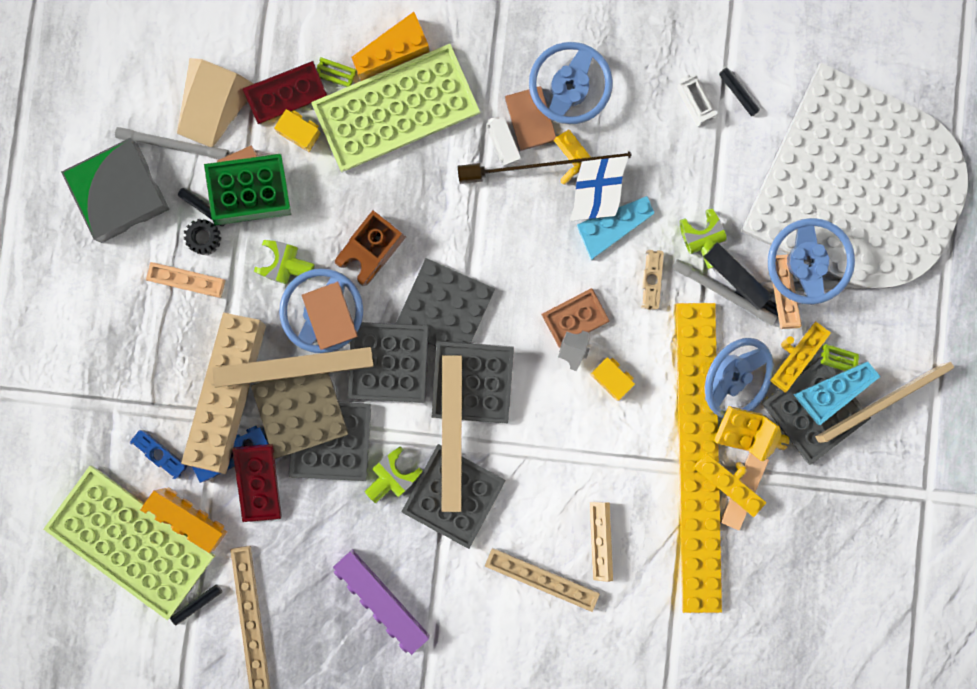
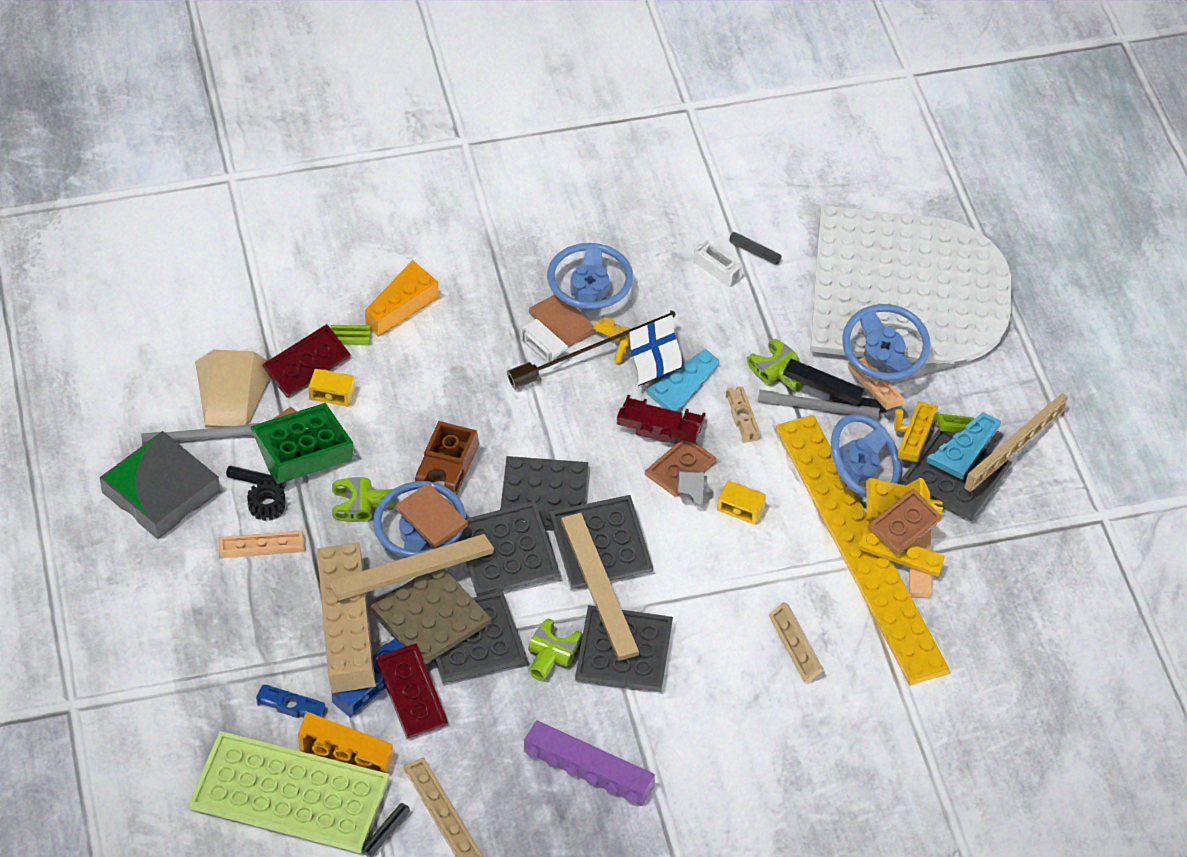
camera: 25 degrees left, 35 degrees down
(395, 108) = (423, 345): yellowish green plate -> none
(542, 579) = (750, 694): tan plate -> none
(571, 269) = (660, 422): none -> dark red bracket
(744, 464) = (904, 522): none -> nougat tile

